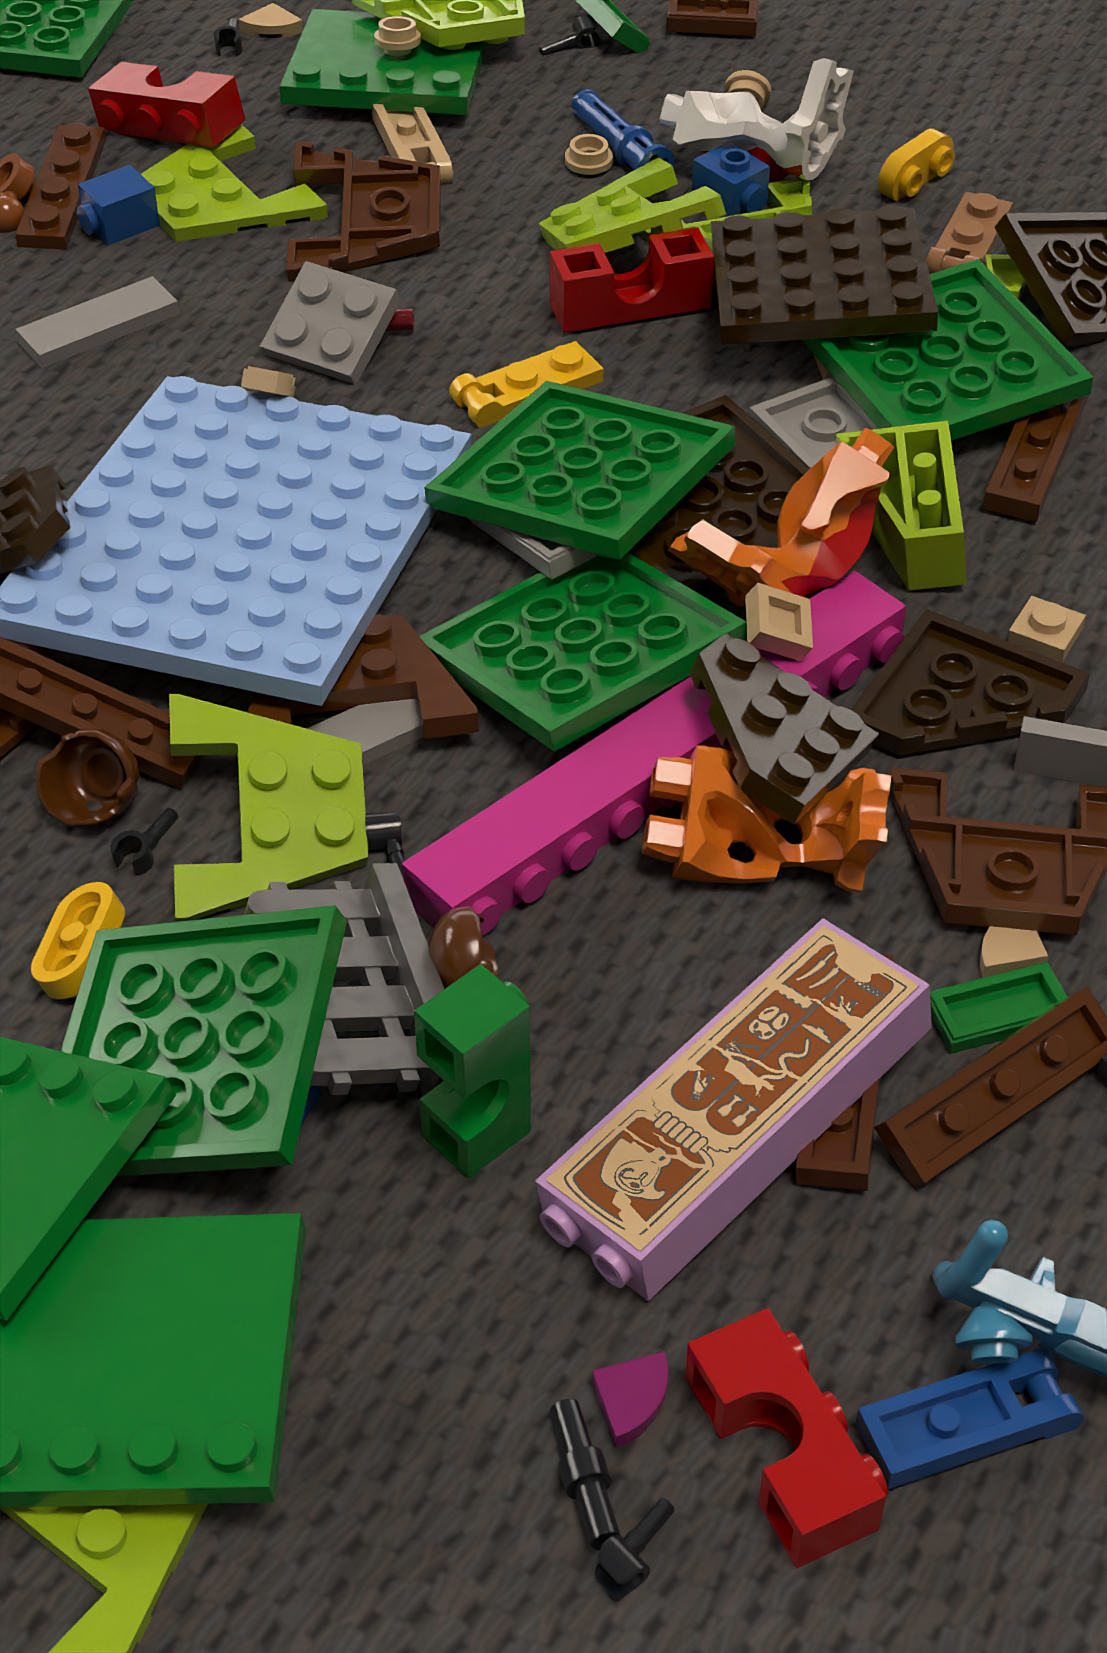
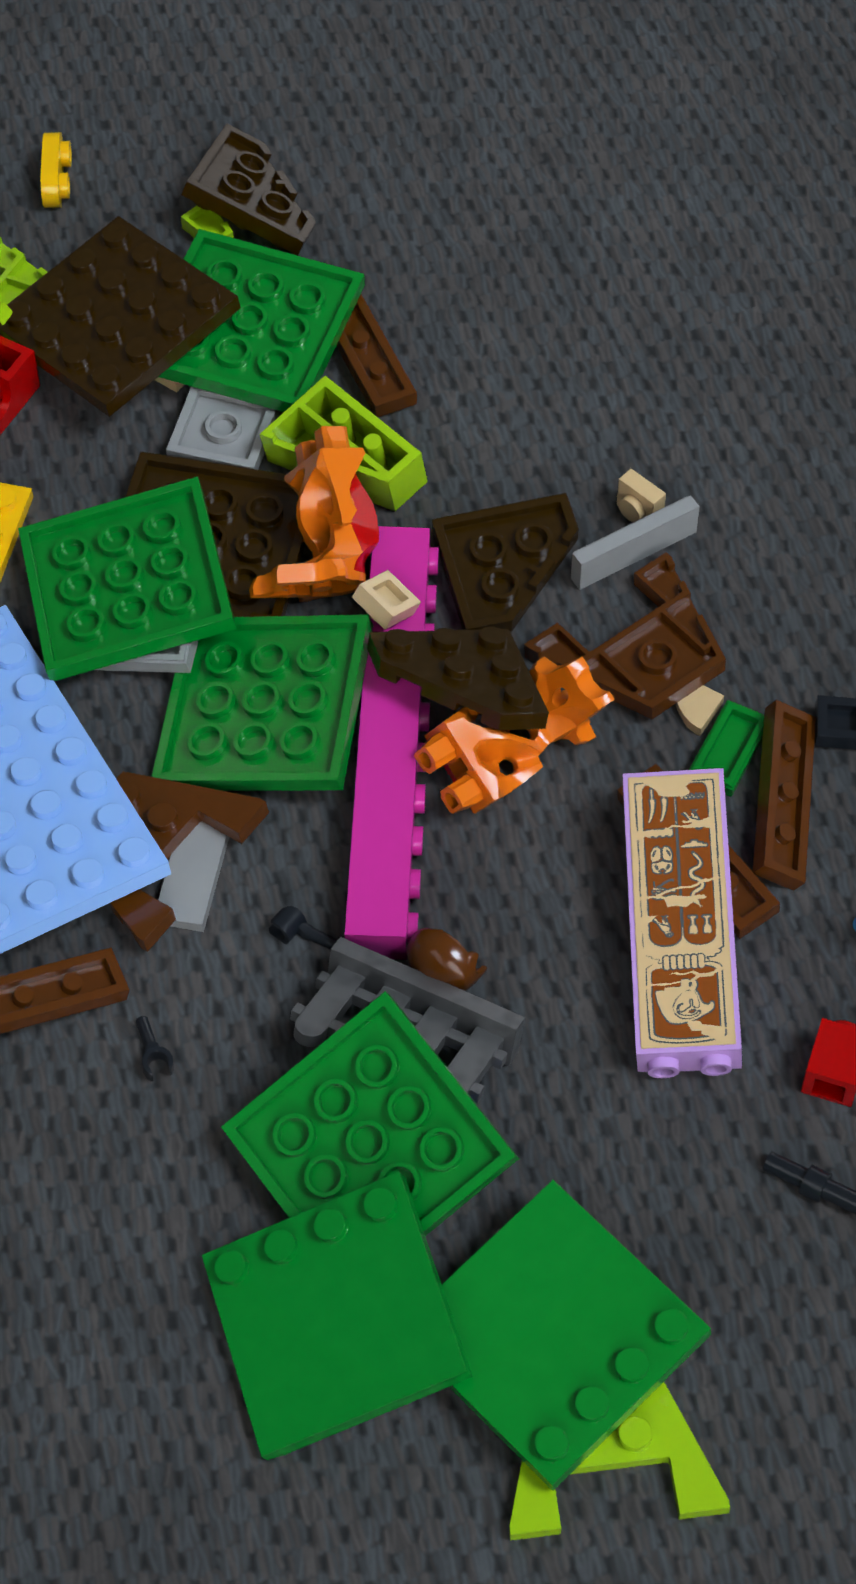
camera: 45 degrees left, 10 degrees up
(70, 936) = (204, 1146): yellow plate -> none
(85, 769) = (77, 1028): reddish brown hair -> none
(295, 805) = (224, 951): lime wing -> none
(480, 1047) = (552, 1020): green arch -> none
(631, 1395) = (791, 1124): magenta tile -> none
(969, 232) = (146, 203): medium nougat plate -> none
(1046, 628) = (502, 478): tan plate -> none

